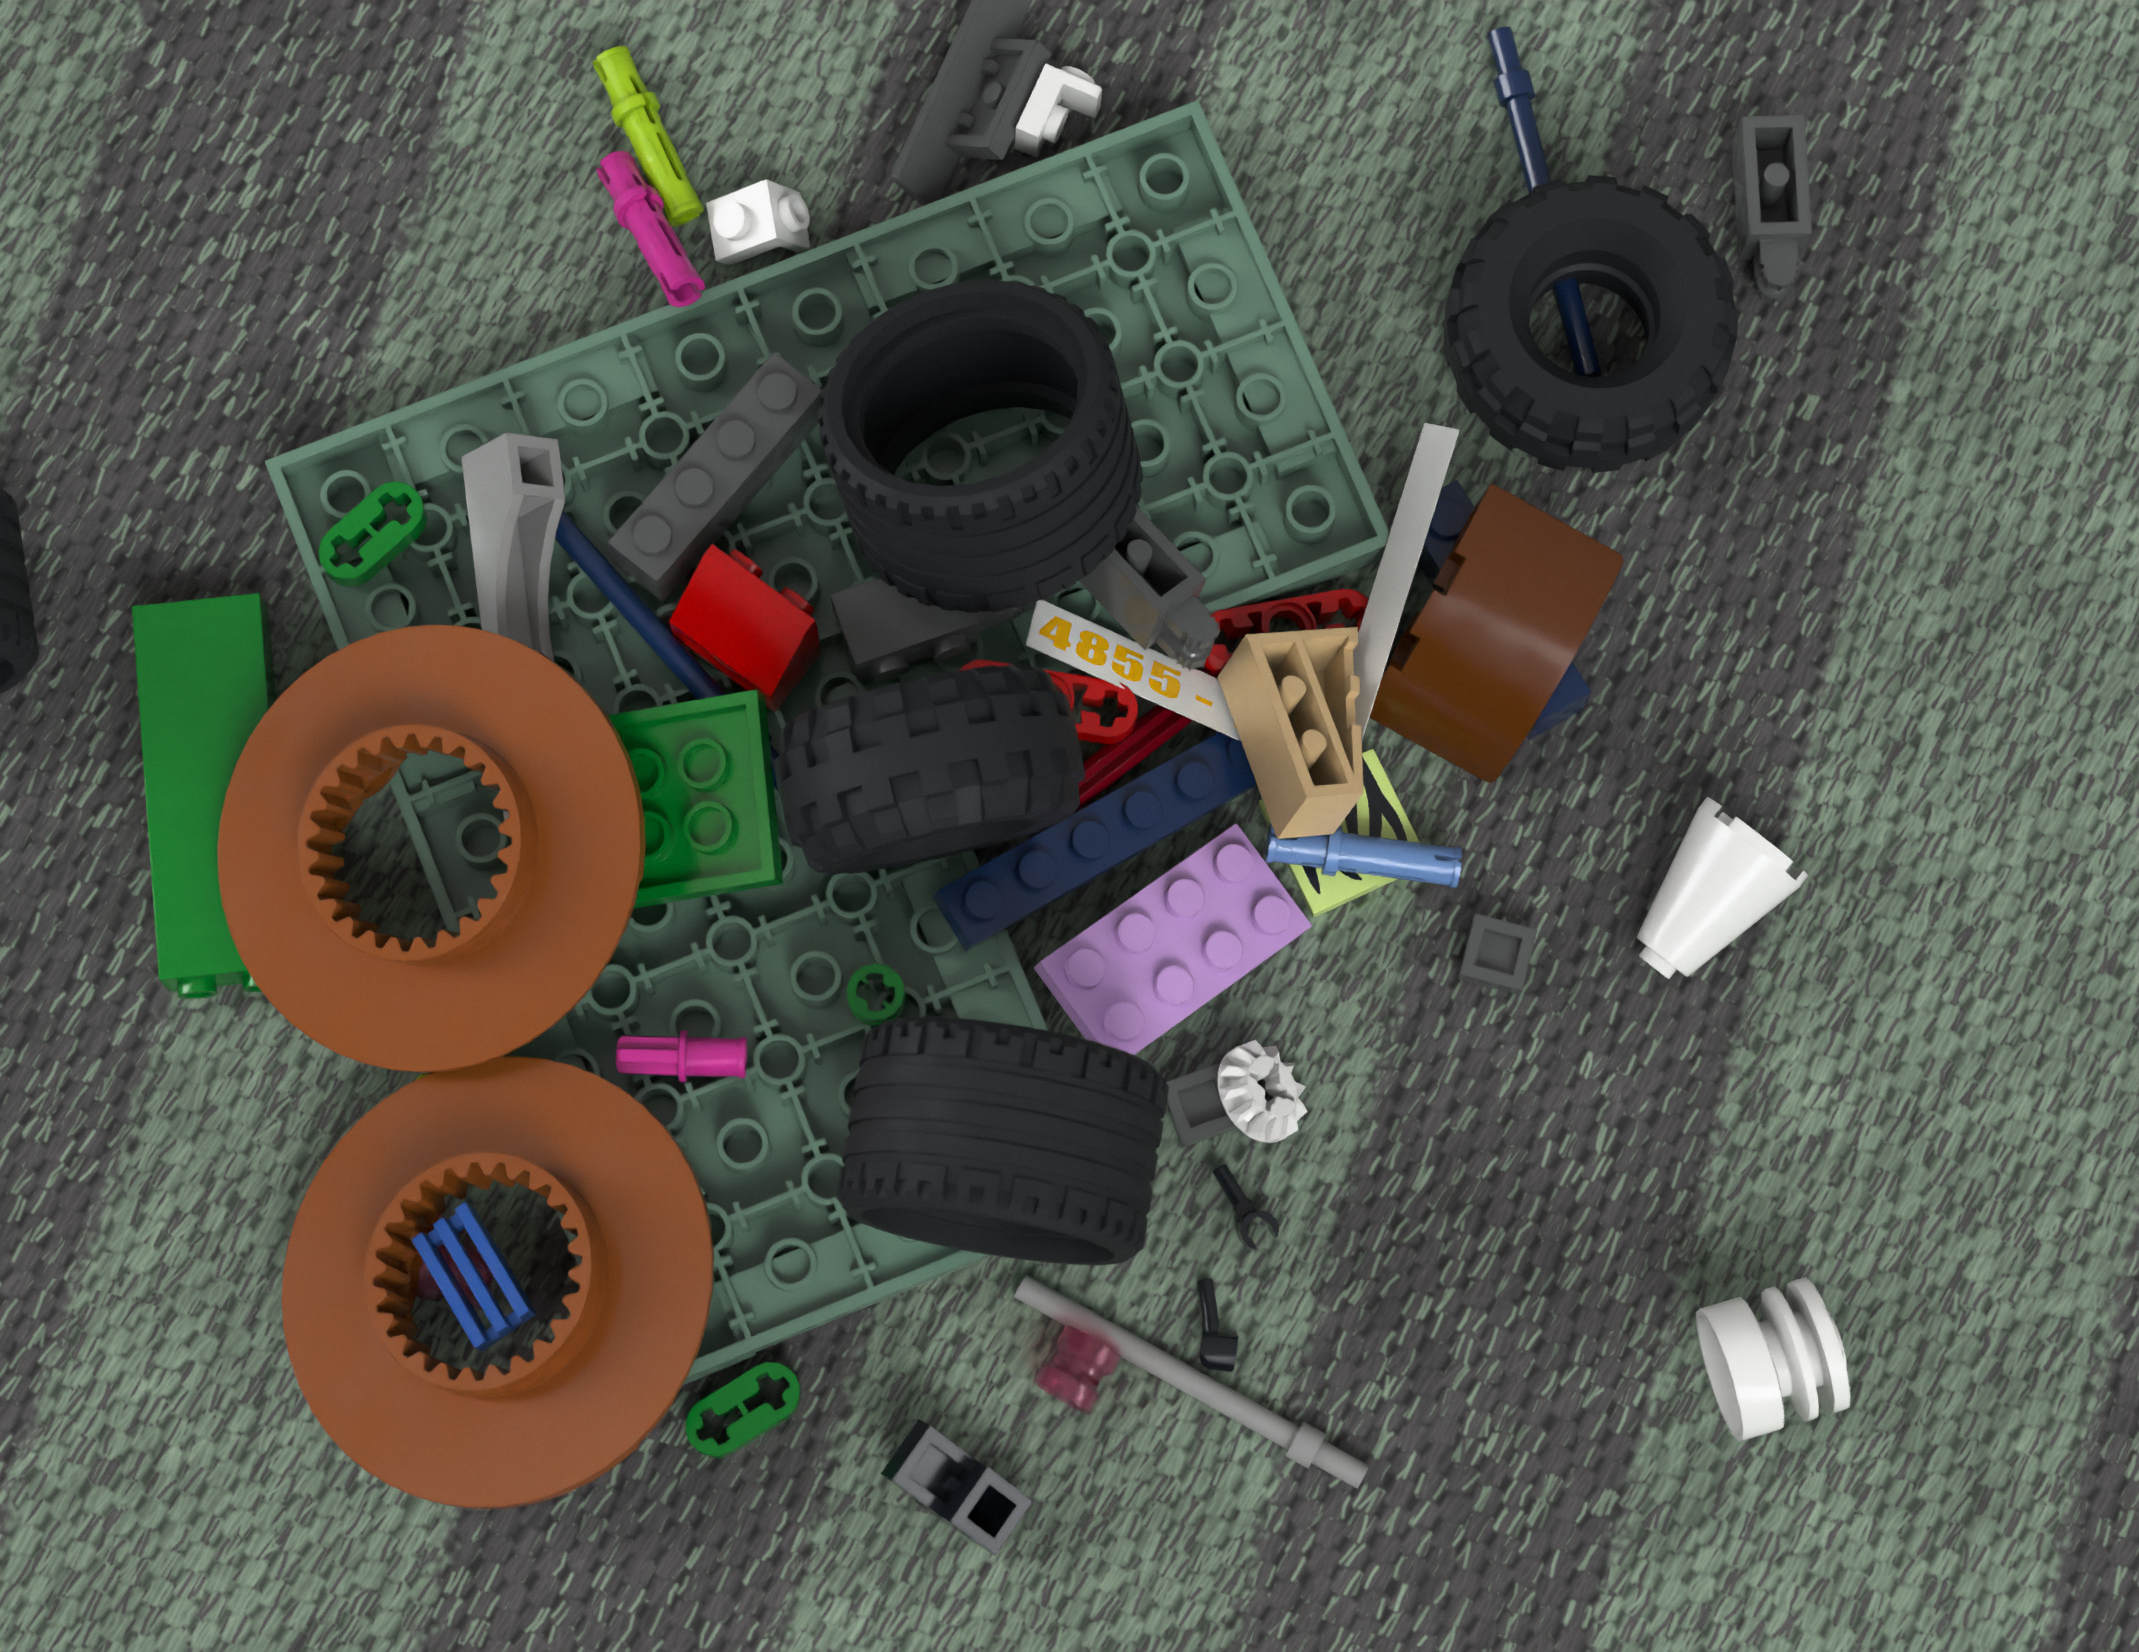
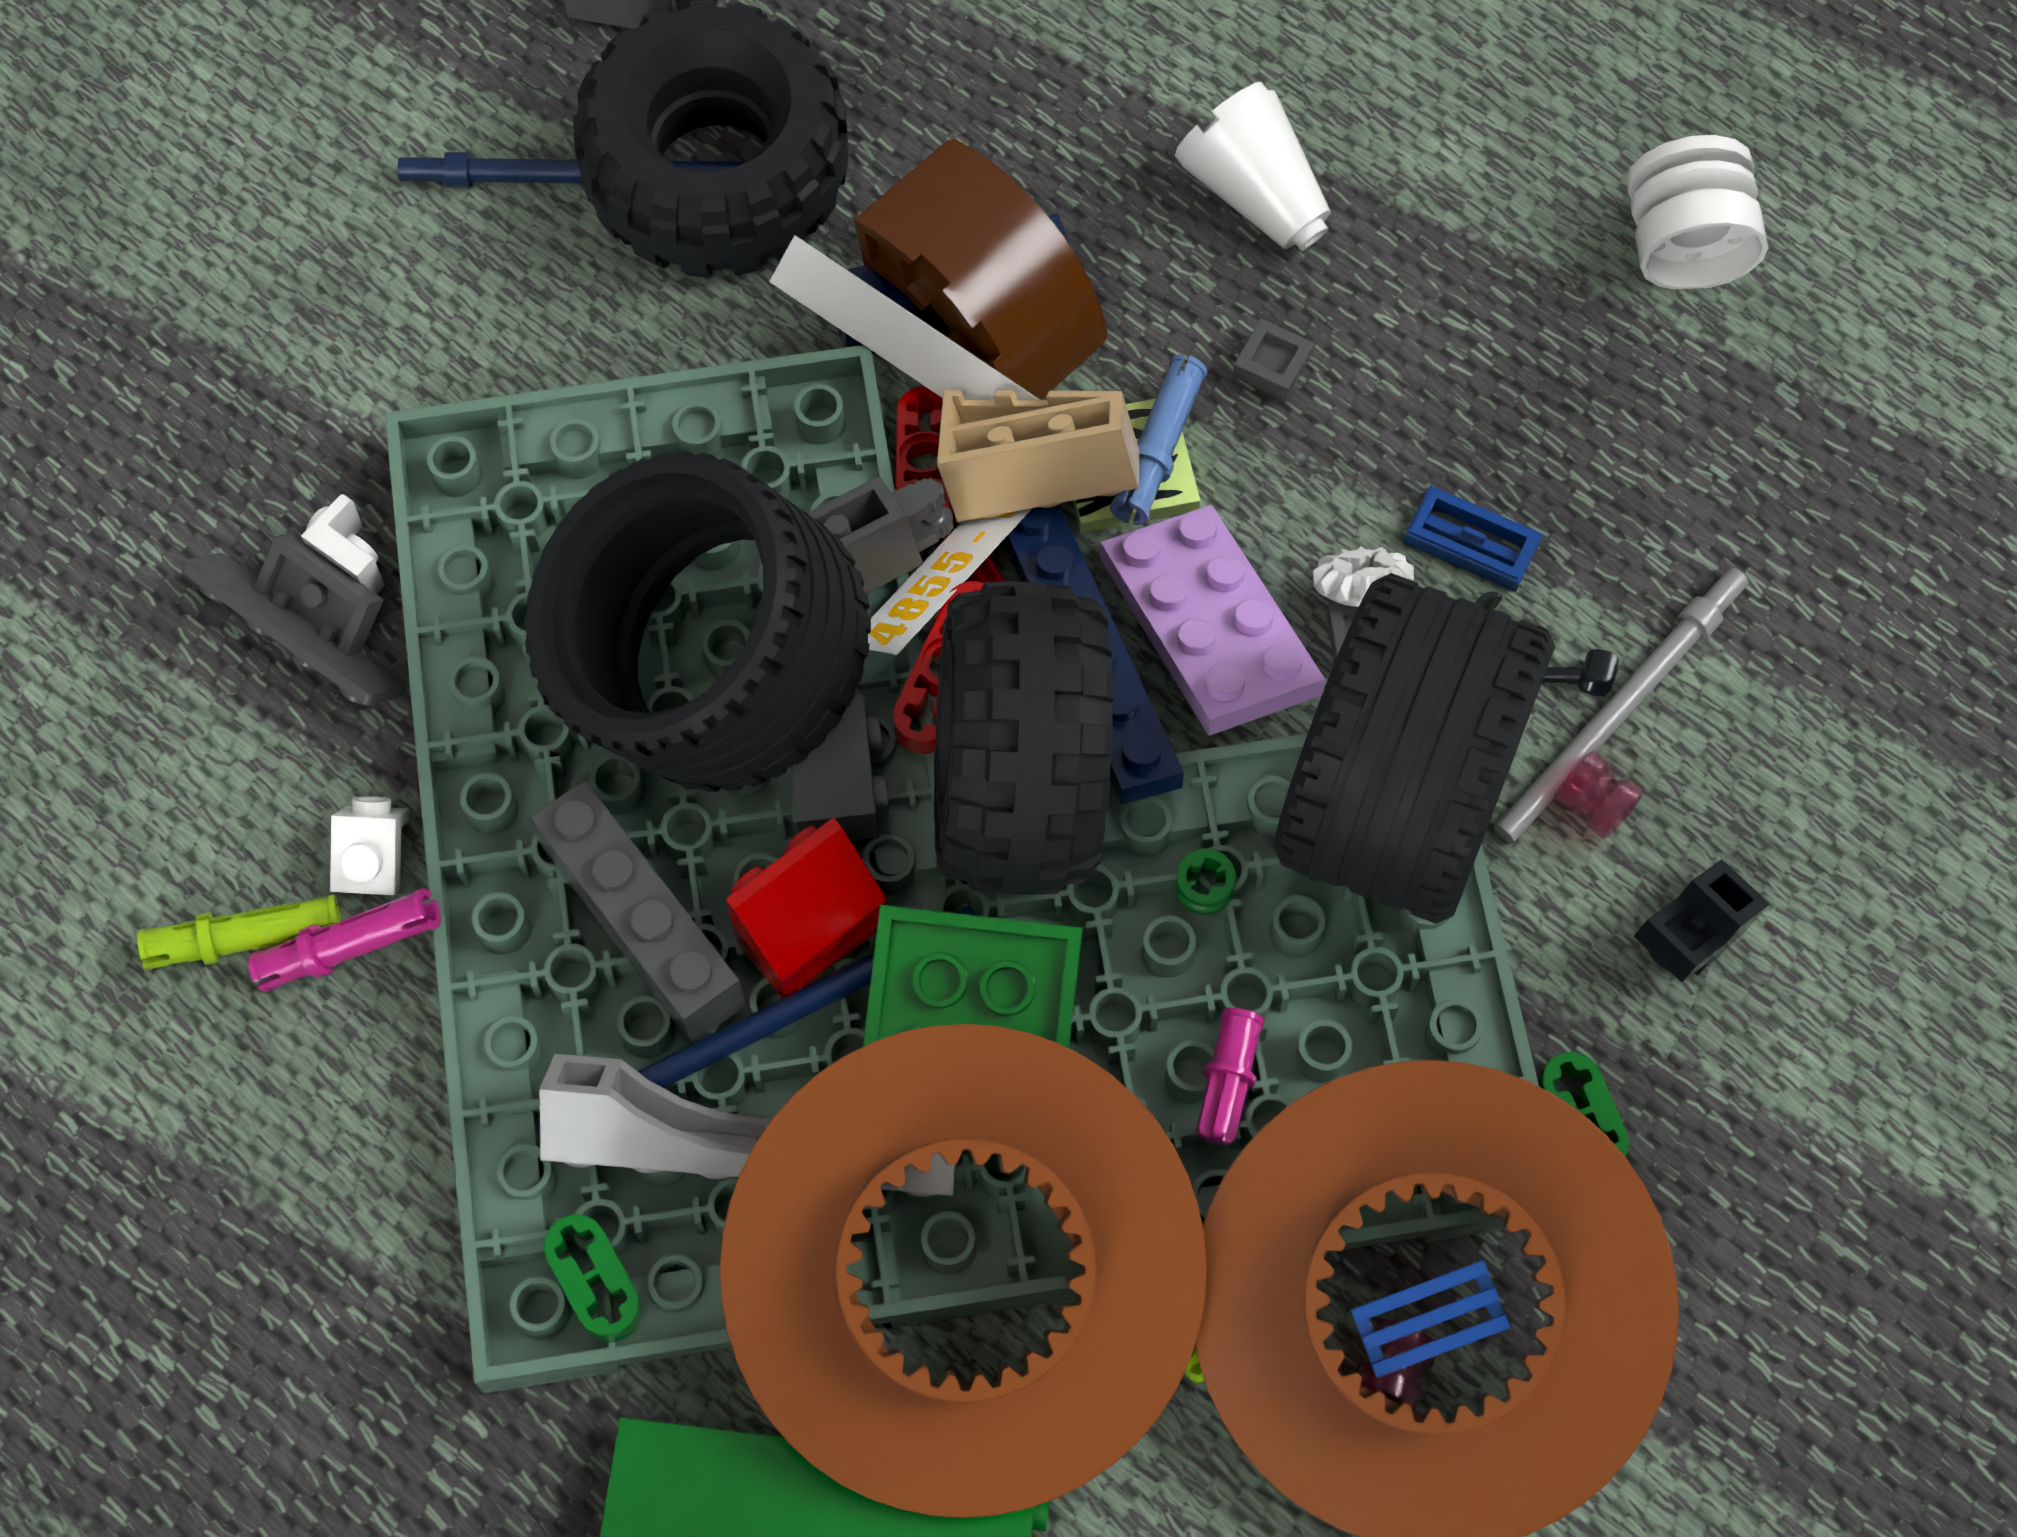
camera: 75 degrees left, 10 degrees down
(1332, 1252) = (1463, 556): none -> blue tile

